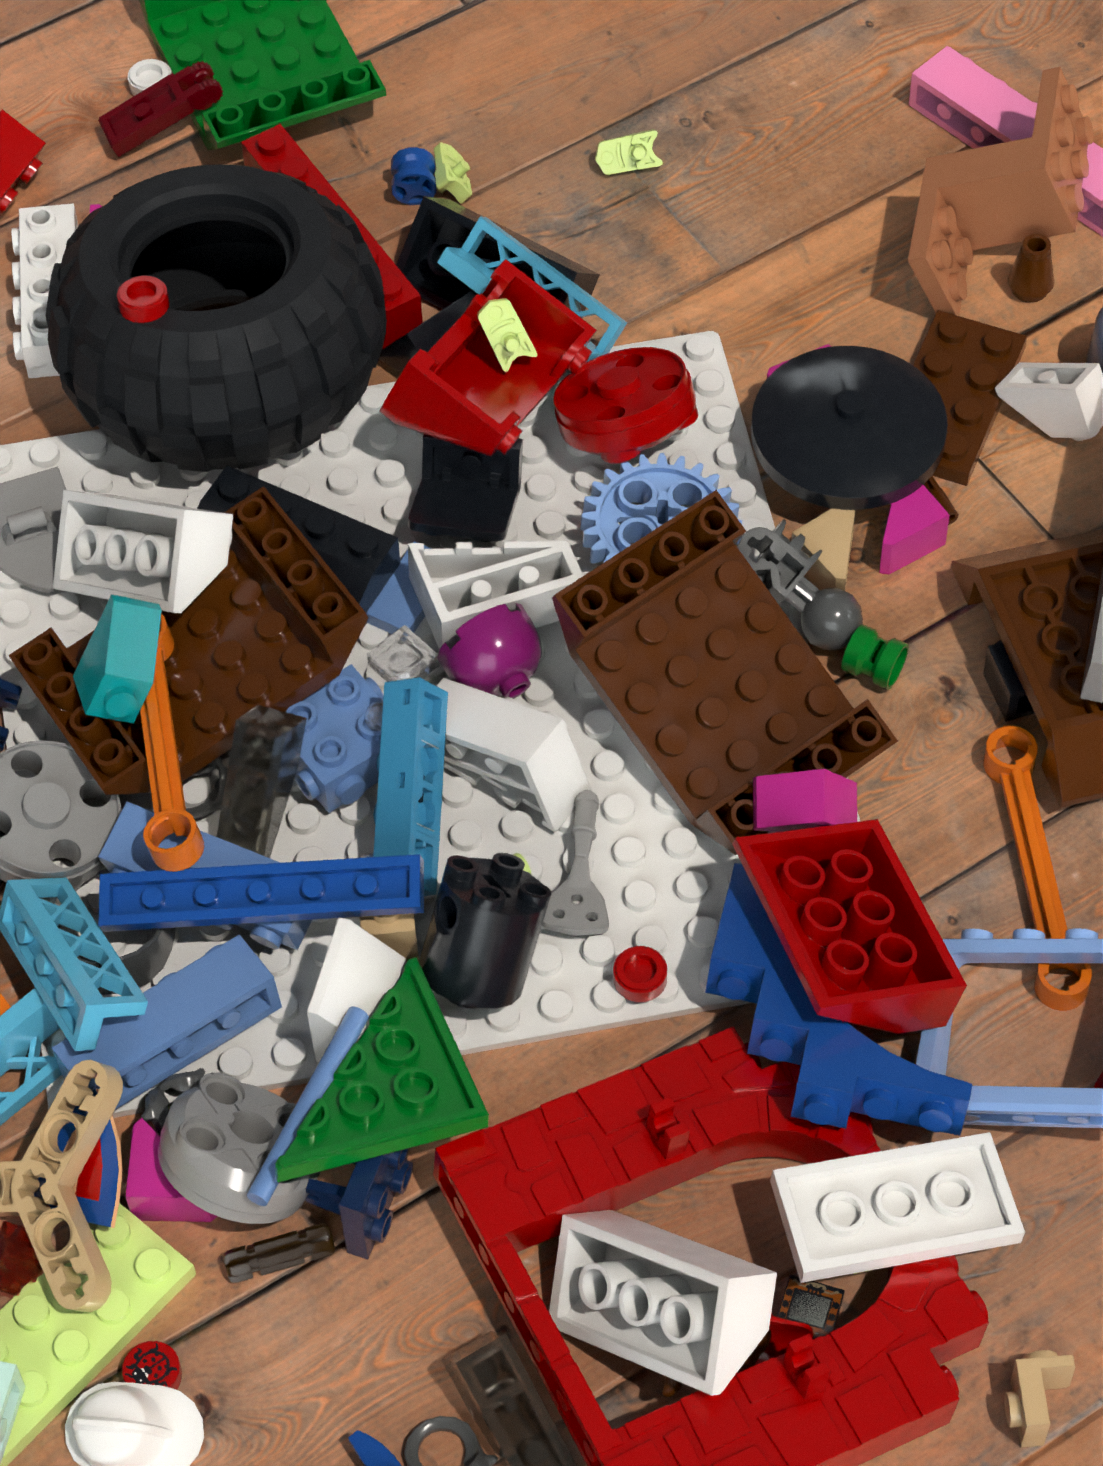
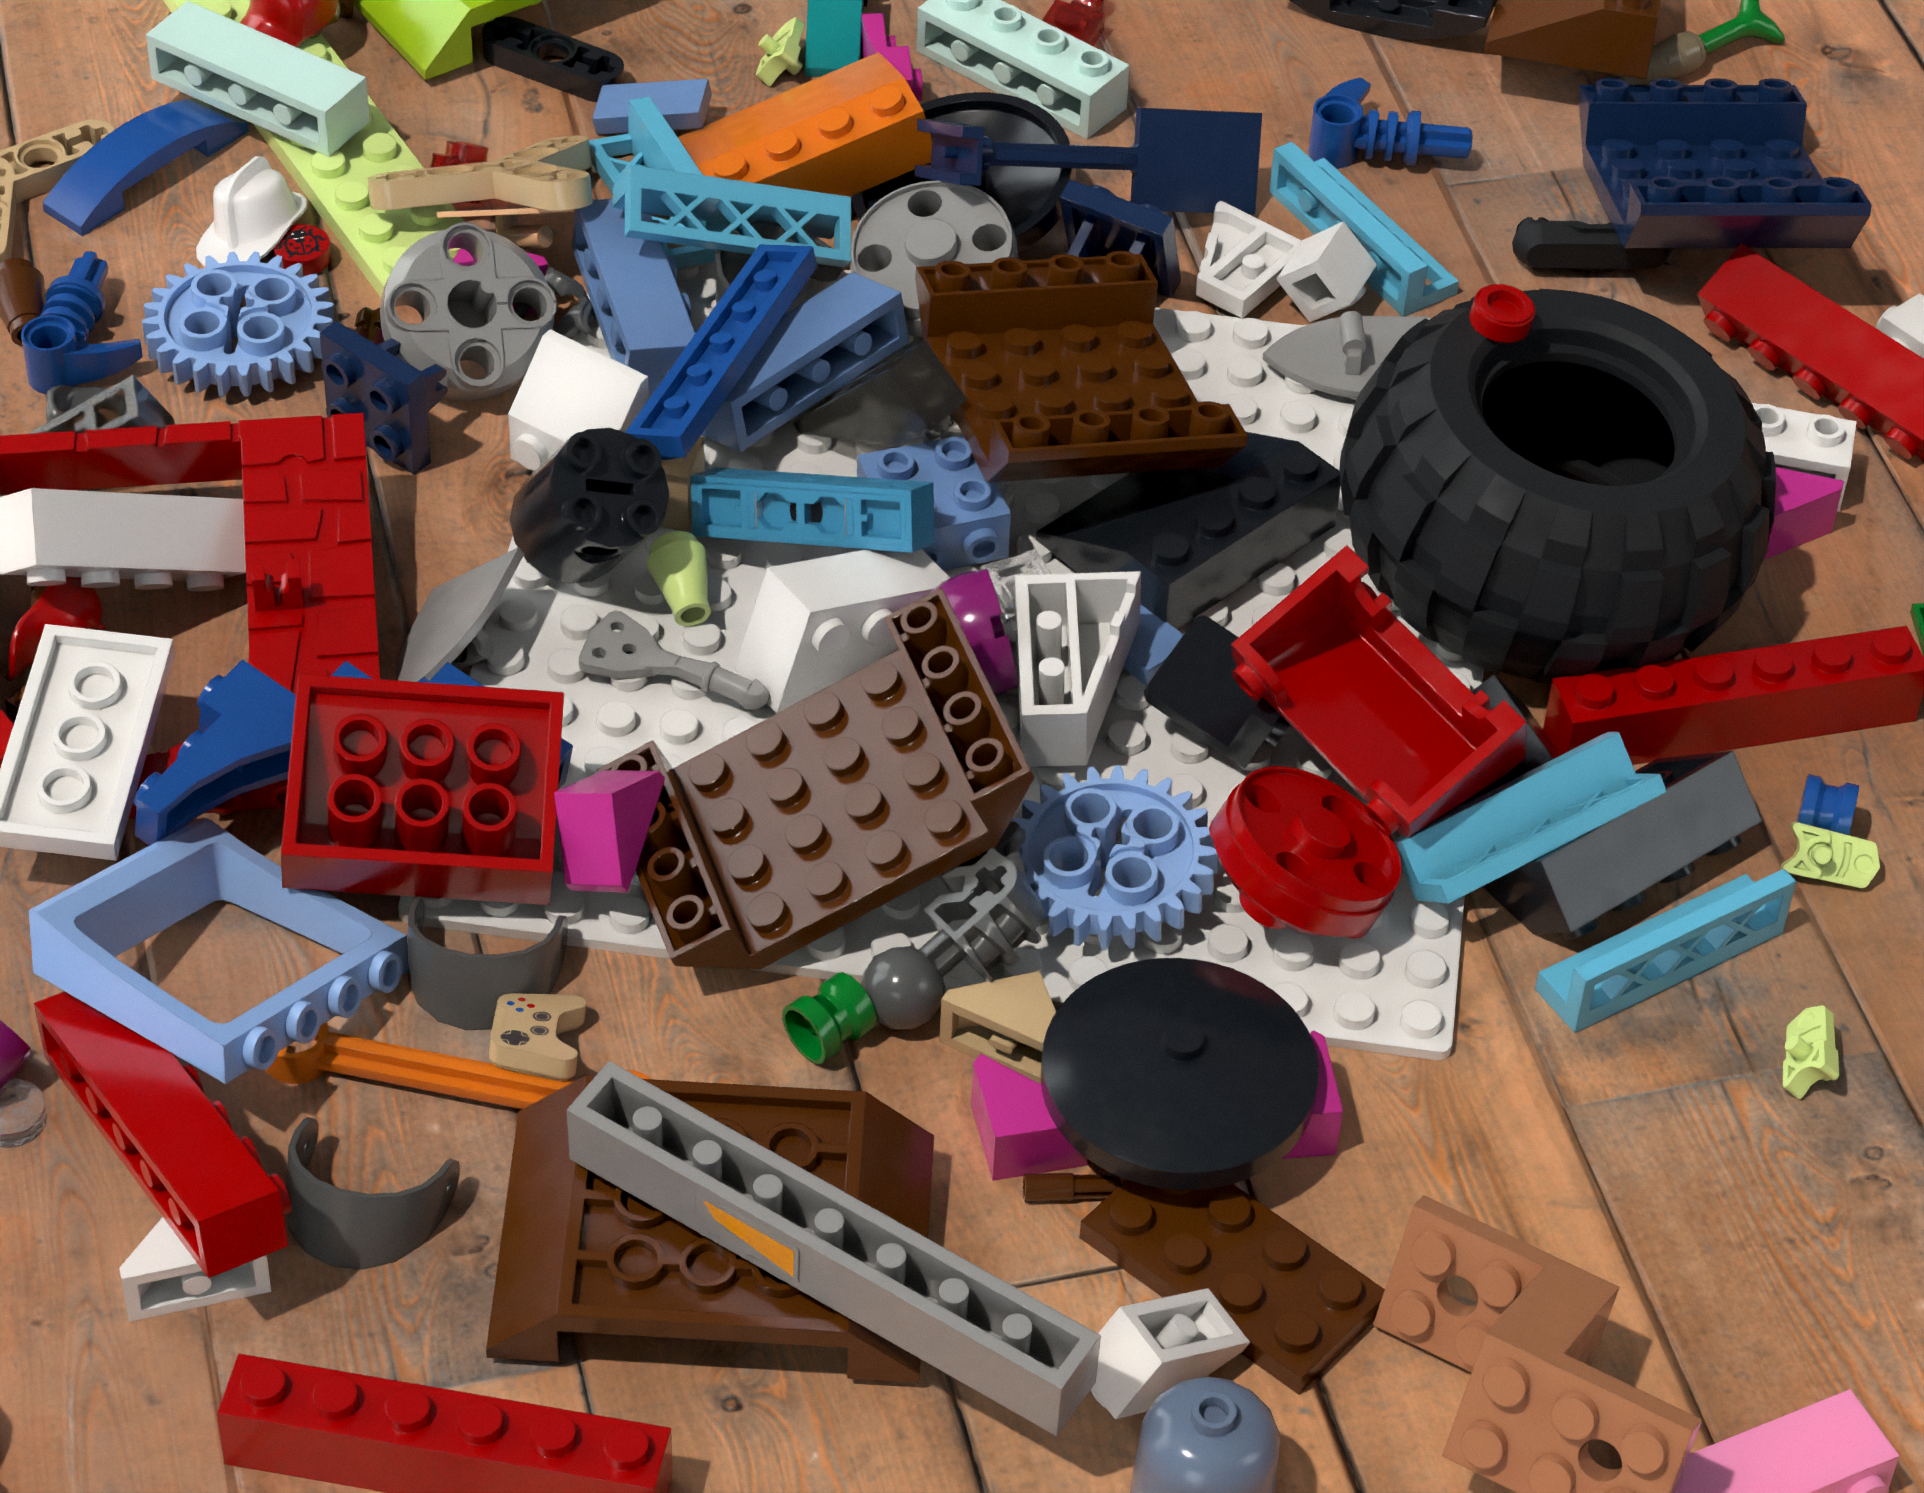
camera: 105 degrees right, 10 degrees down
(119, 660) = (1045, 276): teal slope -> none
(139, 549) = (1246, 367): white slope -> none
(164, 772) = (815, 284): orange piece -> none
(298, 1414) = (199, 315): none -> light blue gear
(342, 1041) = (455, 321): medium blue bar -> none
(392, 1088) = (436, 387): green tile -> none
(505, 332) = (1426, 738): yellowish green piece -> none
(576, 235) = (1666, 949): none -> medium azure fence
(607, 1026) = (455, 619): none -> light grey shield
(640, 974) = (509, 668): red tile -> none
(931, 843) = (464, 986): none -> dark grey piece
(986, 828) = (527, 1030): none -> tan piece
(1033, 270) = (1416, 1419): reddish brown cone -> none

